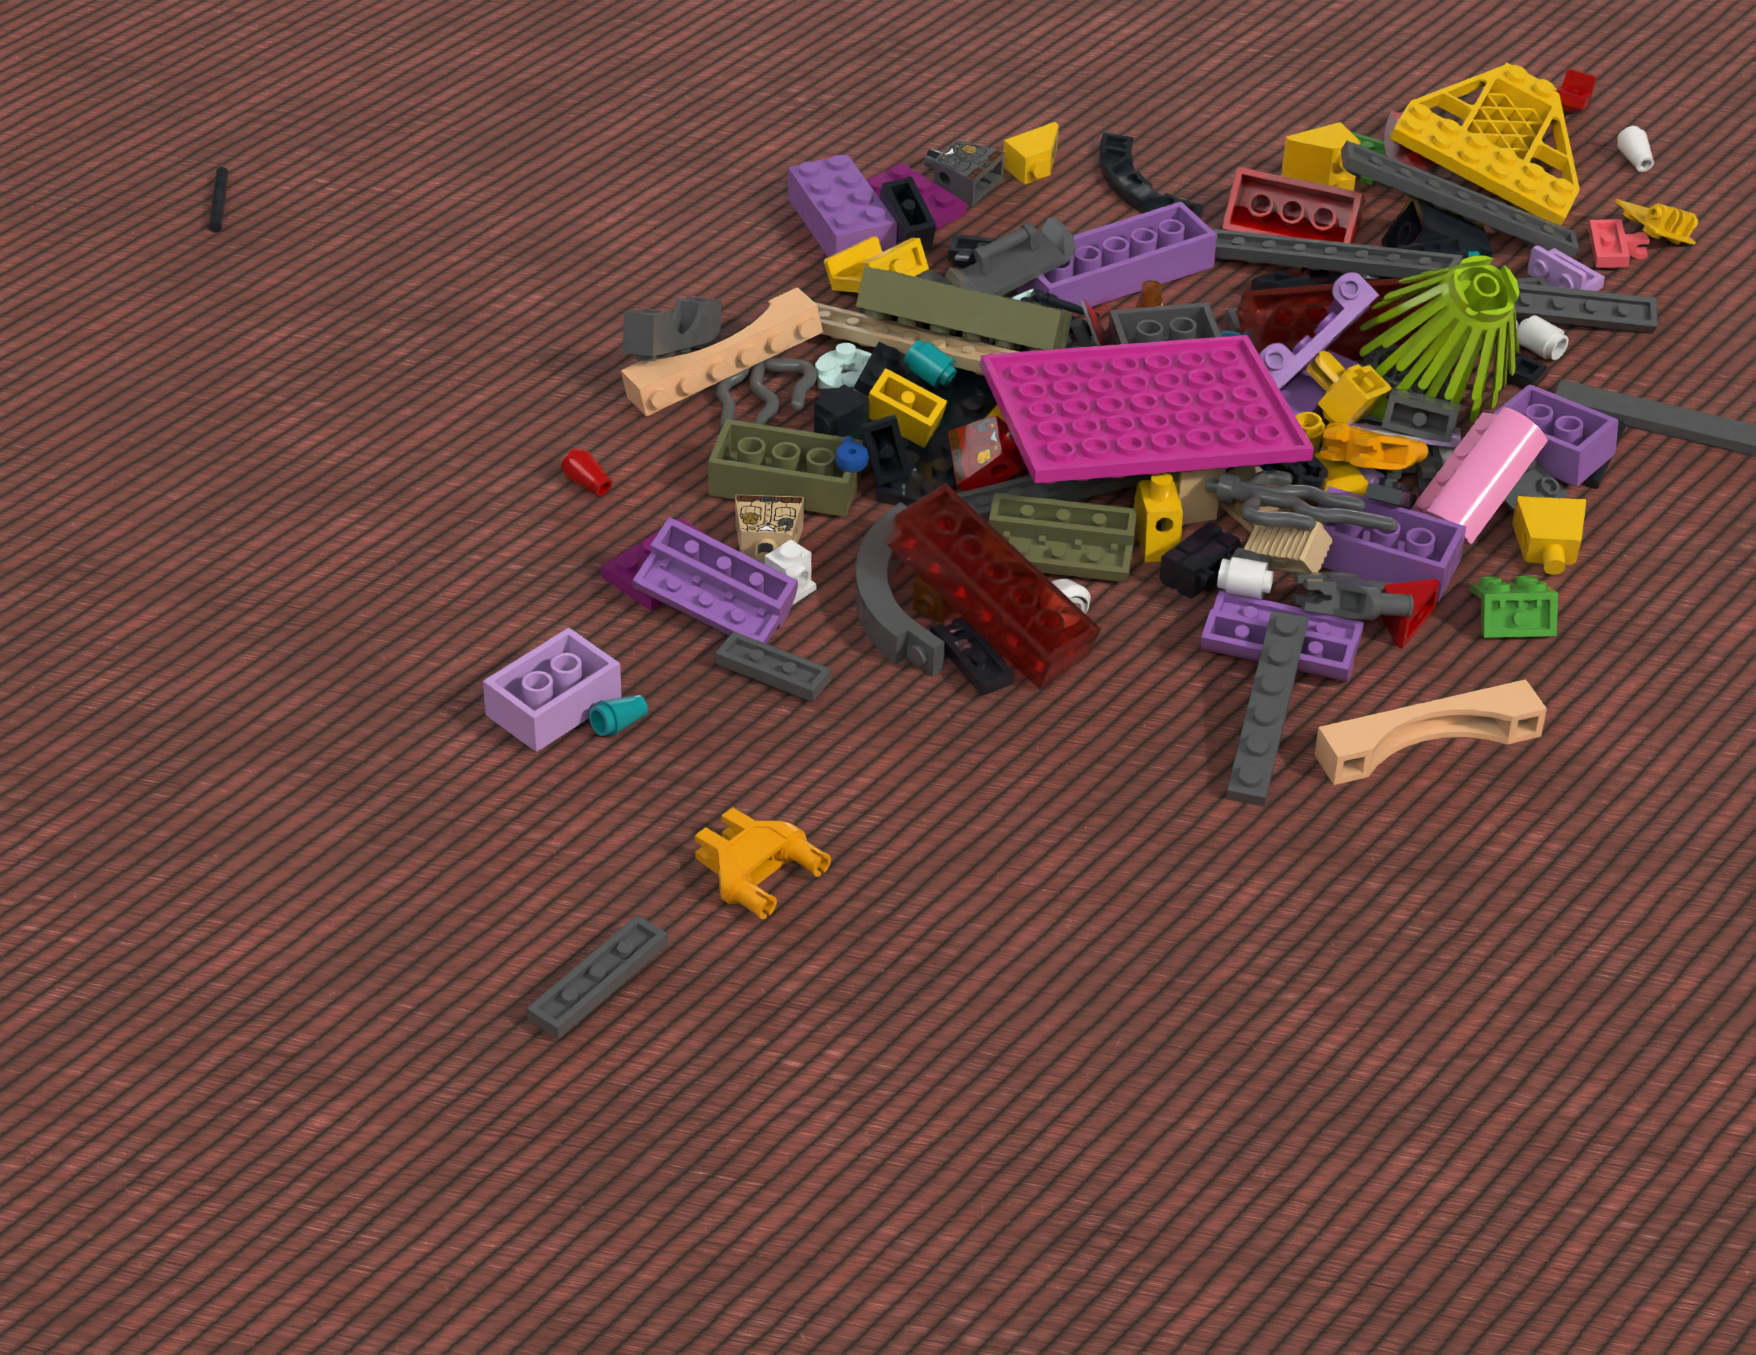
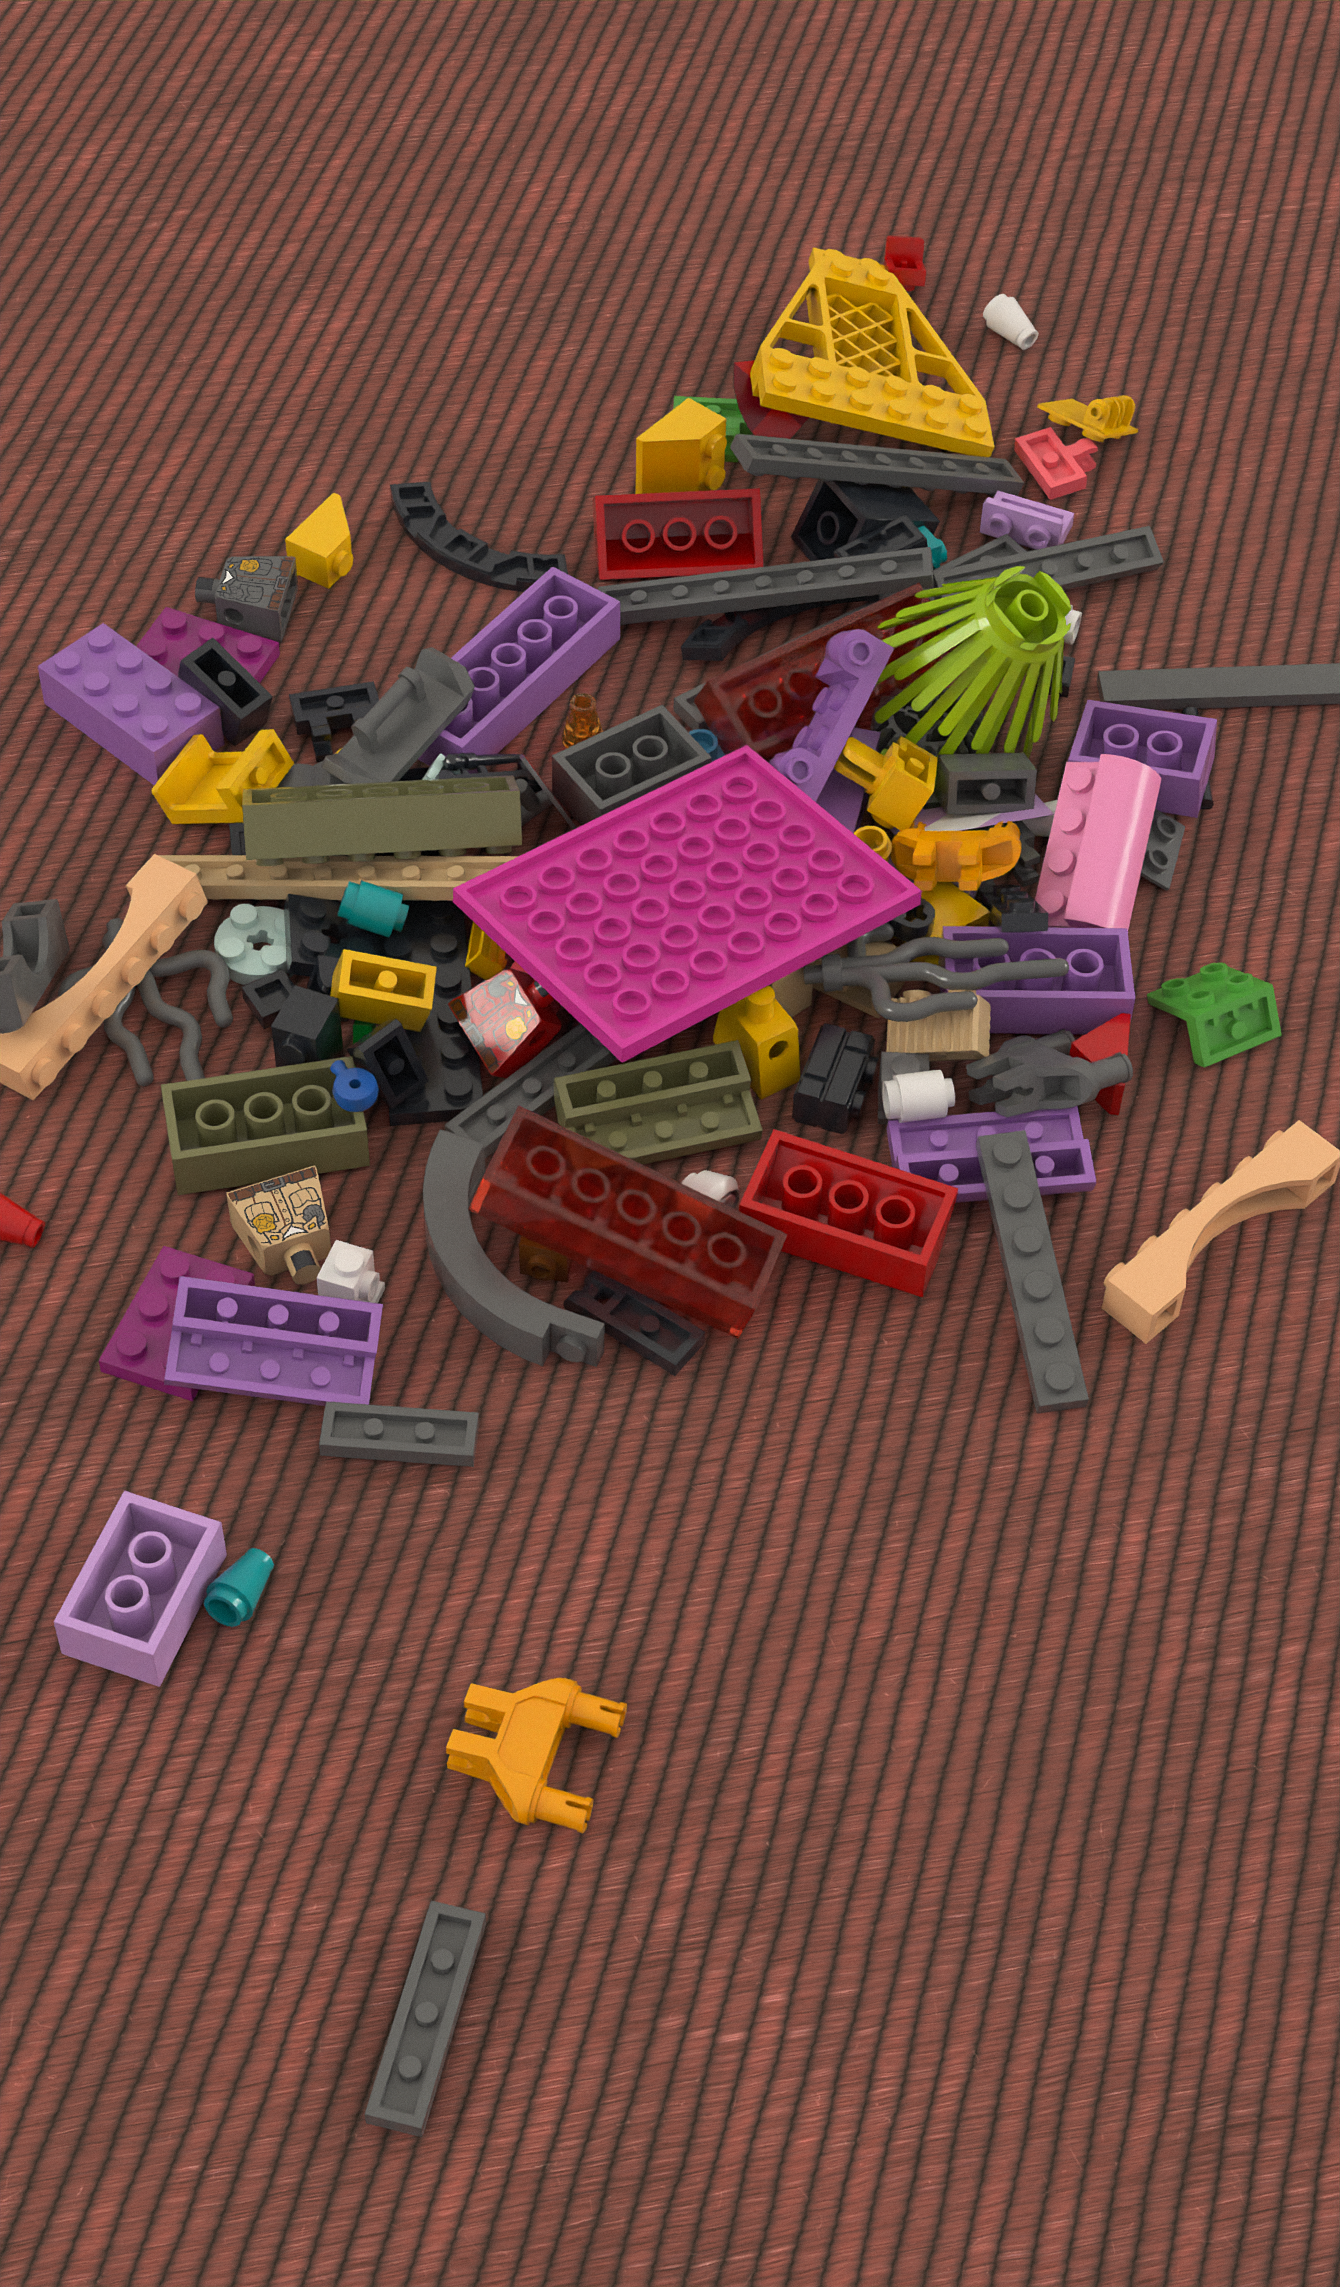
camera: 25 degrees left, 10 degrees up
(1158, 634) = (851, 1211): none -> red slope
(1549, 530) = (1204, 893): yellow torso -> none

